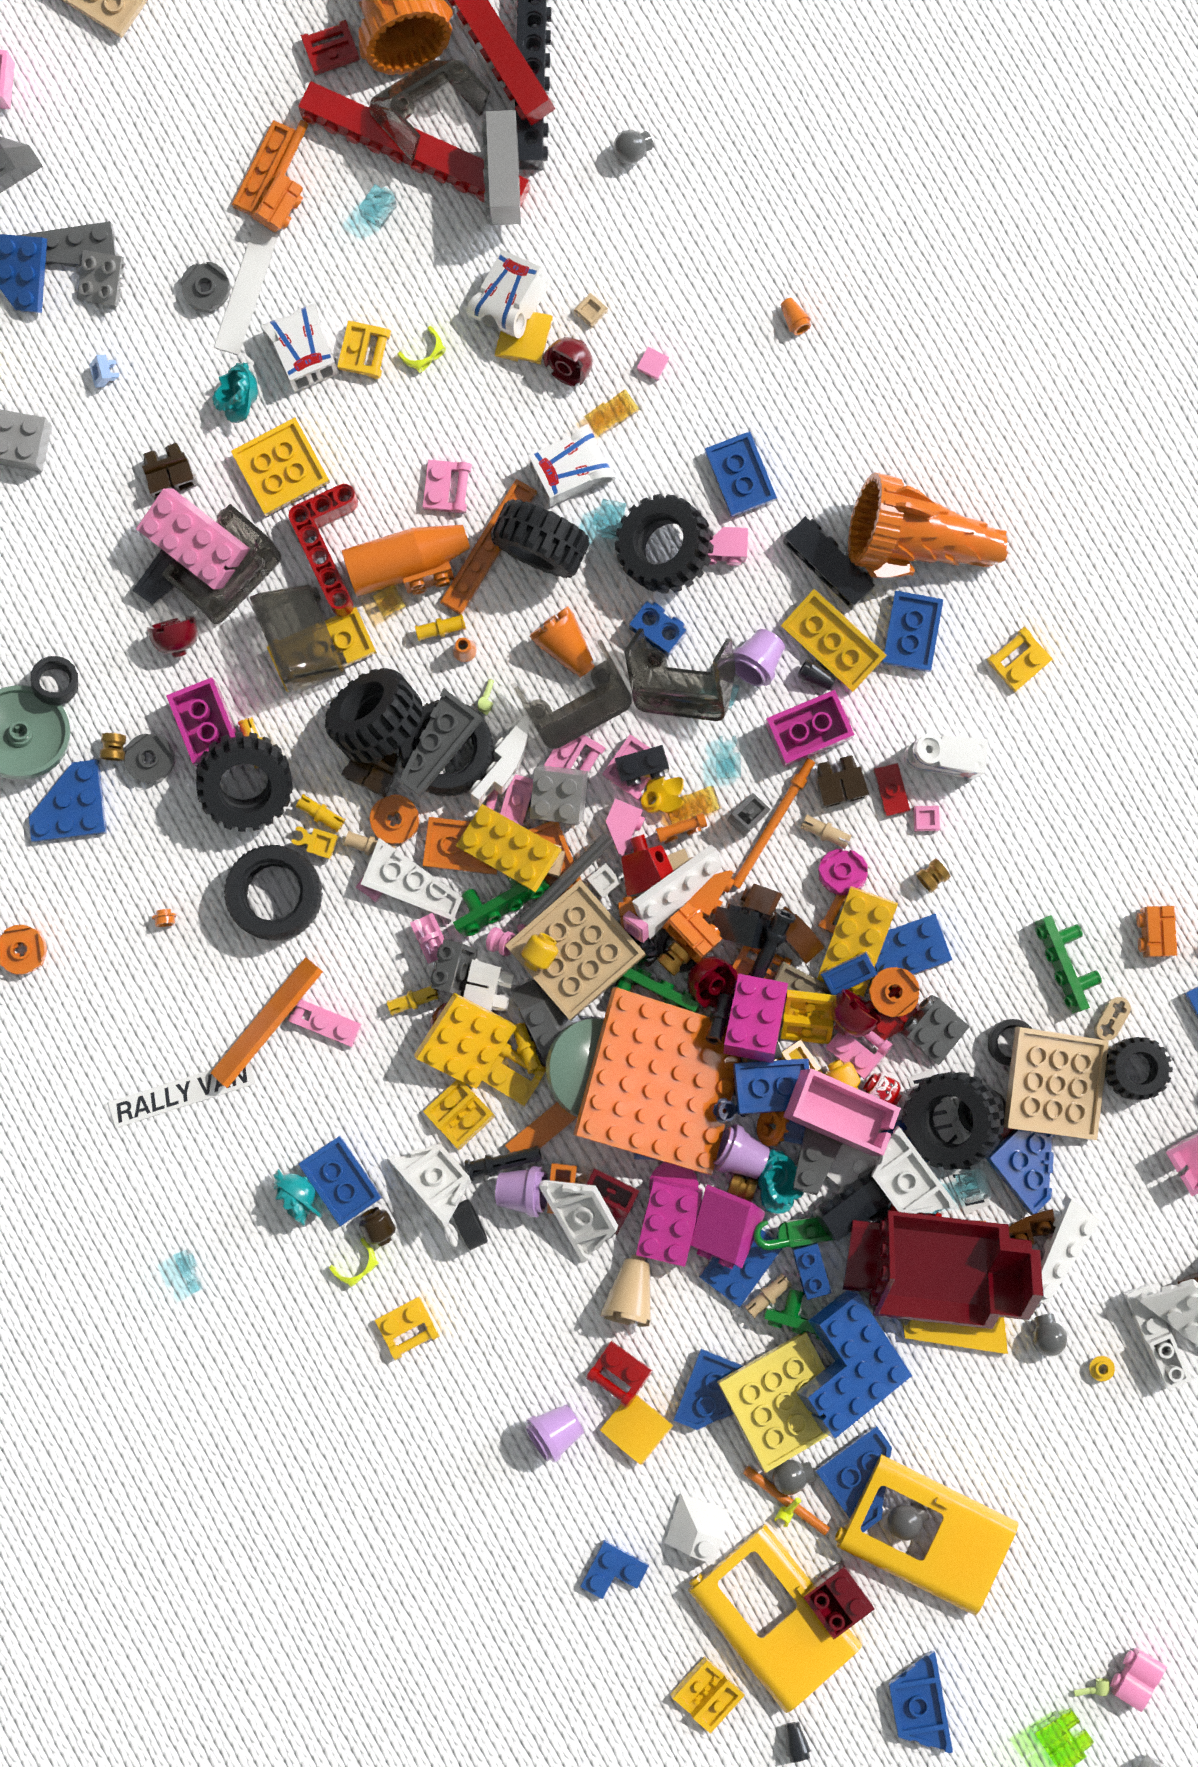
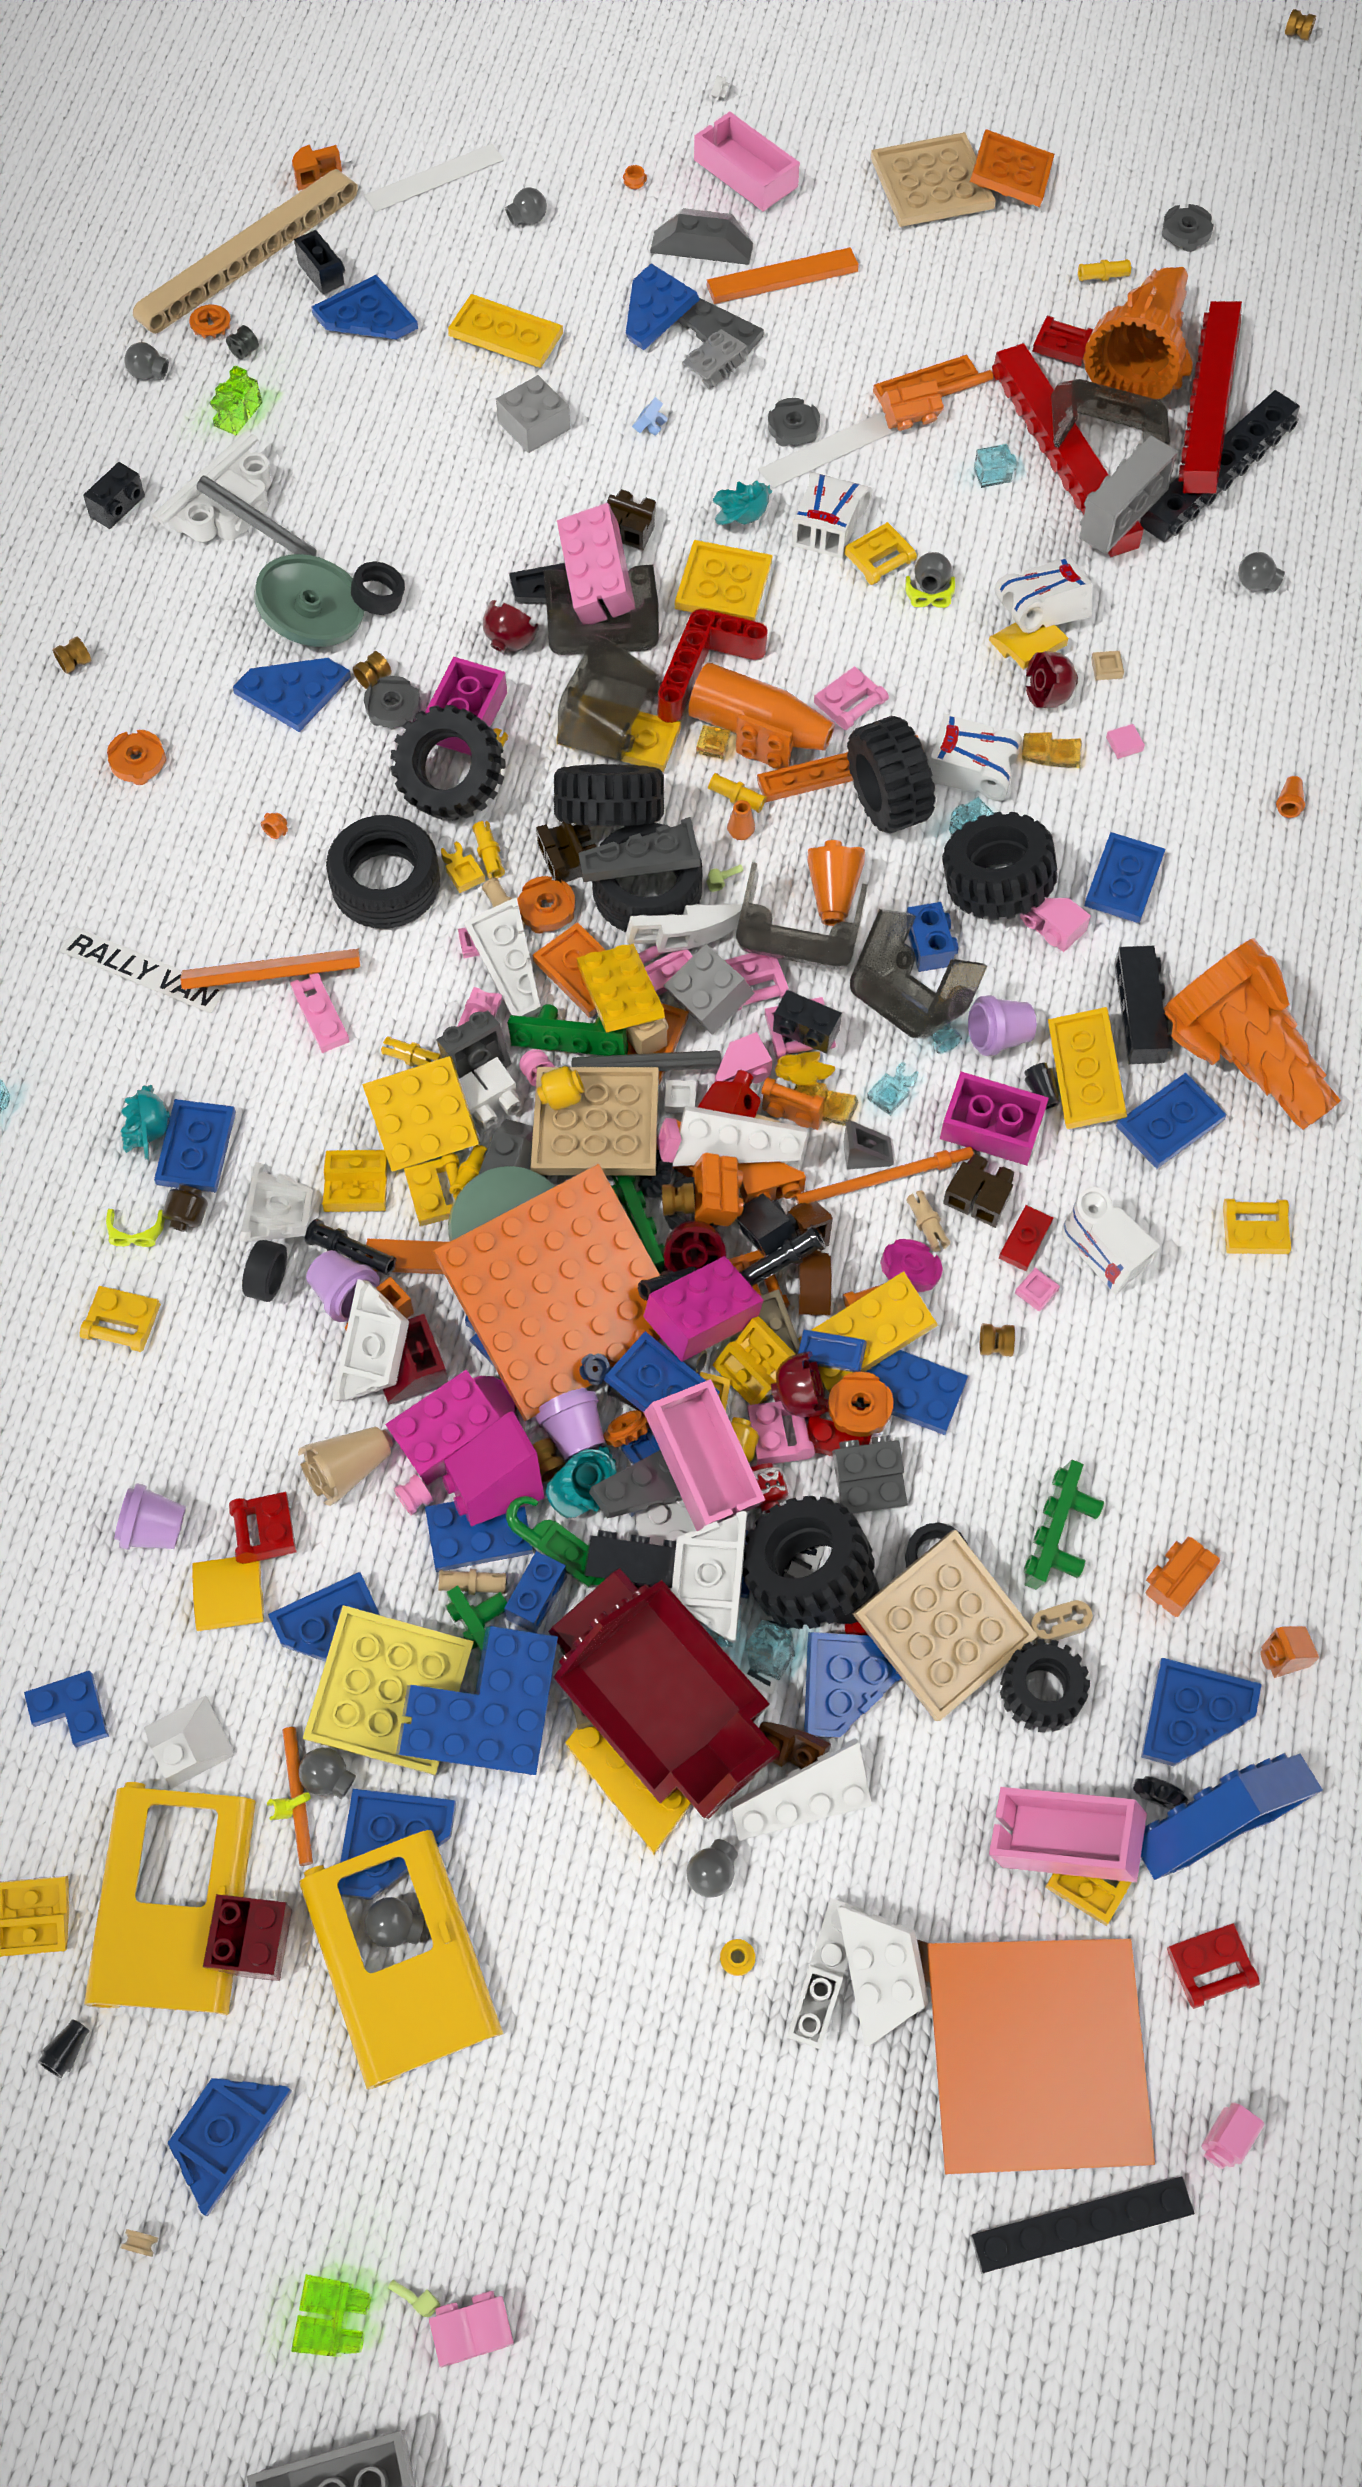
camera: 40 degrees right, 20 degrees down
(78, 157) = (782, 275): none -> orange tile
(416, 338) = (932, 572): none -> dark grey piece
(686, 1277) = (413, 1494): none -> bright pink wheel

